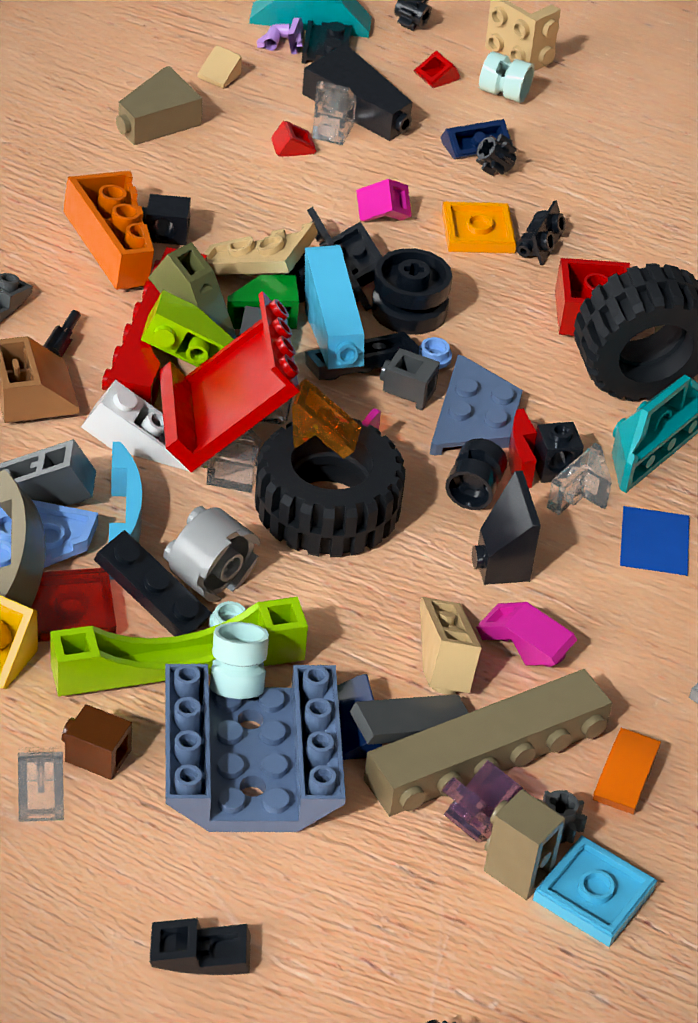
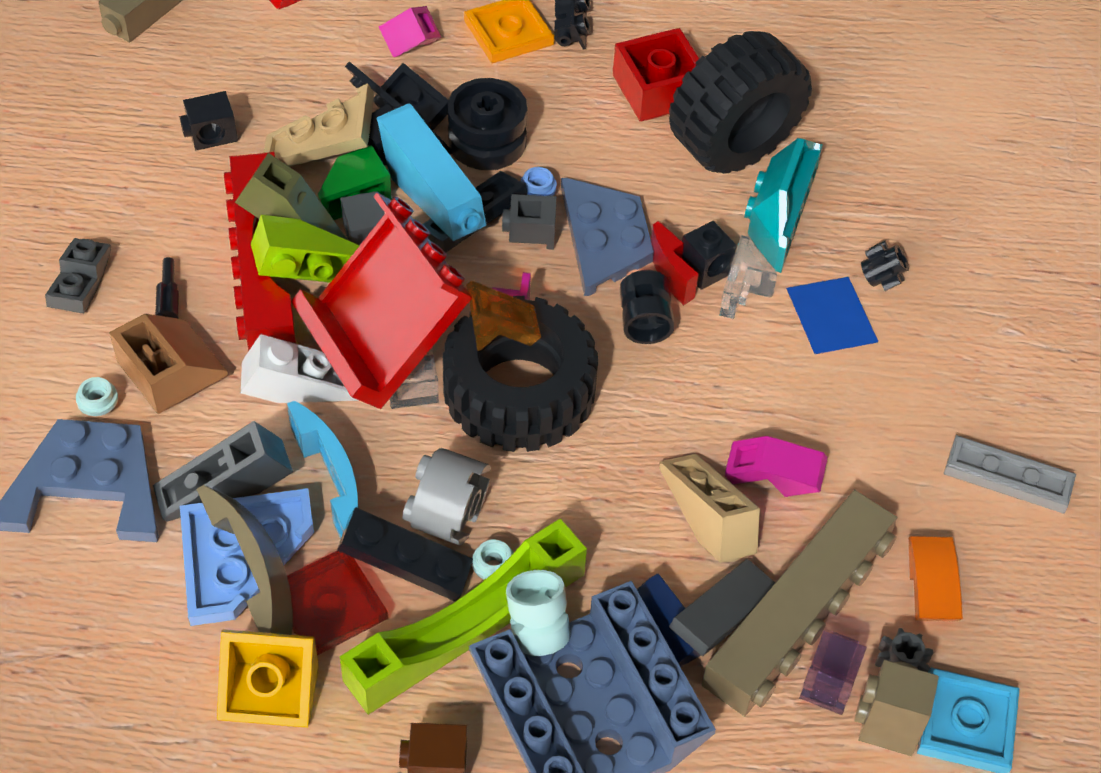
camera: 20 degrees left, 10 degrees up
(111, 225) = (160, 149): orange wedge -> none
(508, 536) = (716, 366): black slope -> none

